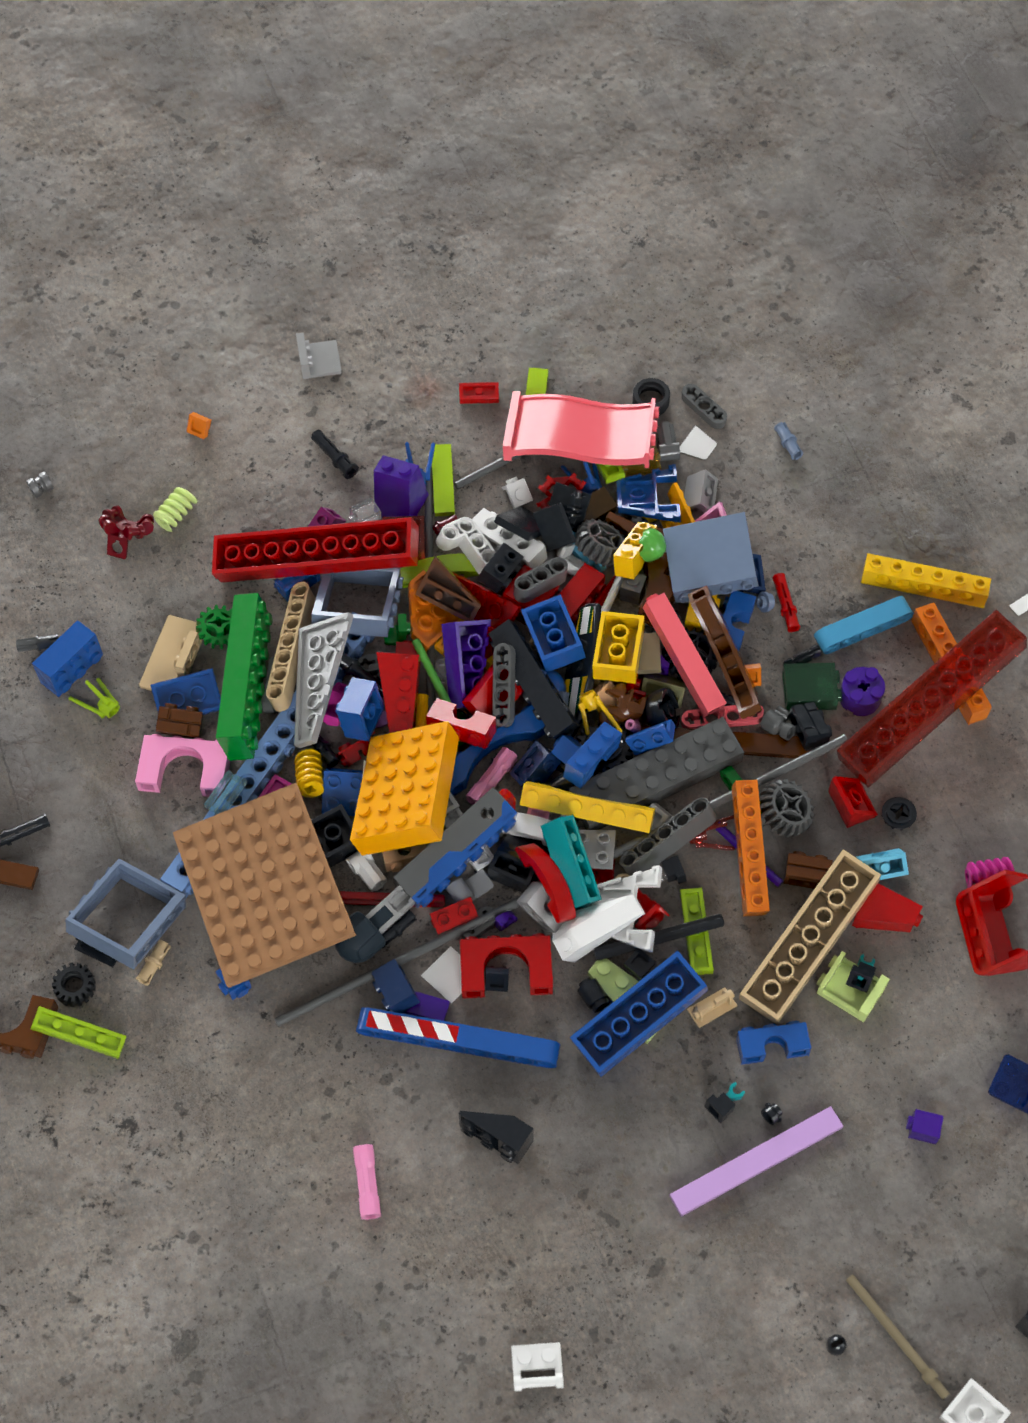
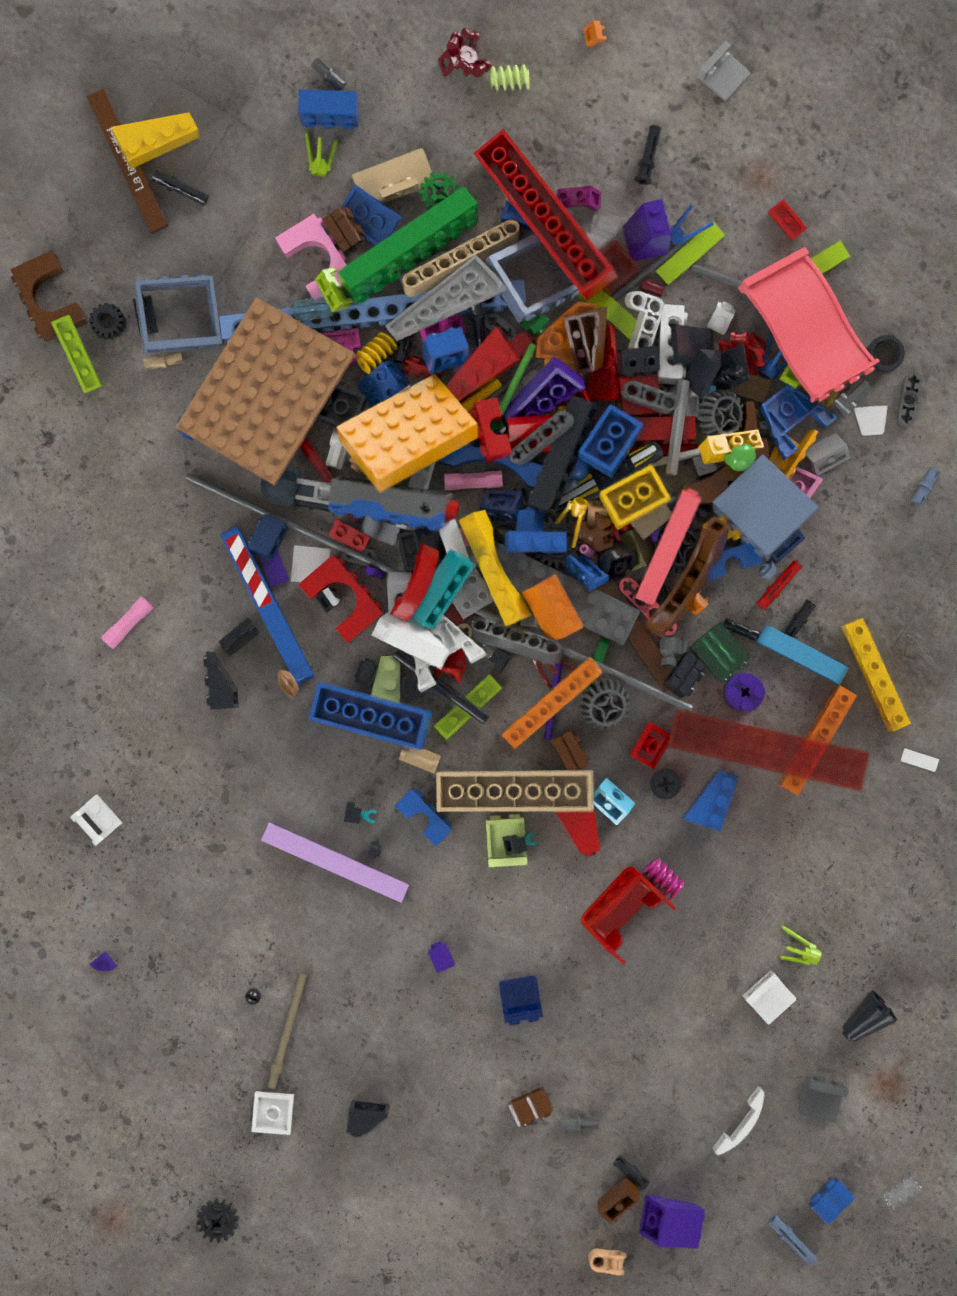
camera: 50 degrees right, 25 degrees up
(225, 762) = (331, 290): none -> lime hinge
(466, 1087) = (238, 637): none -> black hinge
(545, 1078) = (287, 683): none -> medium nougat piece
(586, 581) = (677, 428): none -> light grey axle
(664, 781) = (552, 608): none -> orange slope
(828, 605) = (800, 618): none -> black pin
(946, 782) = (713, 801): none -> blue wedge

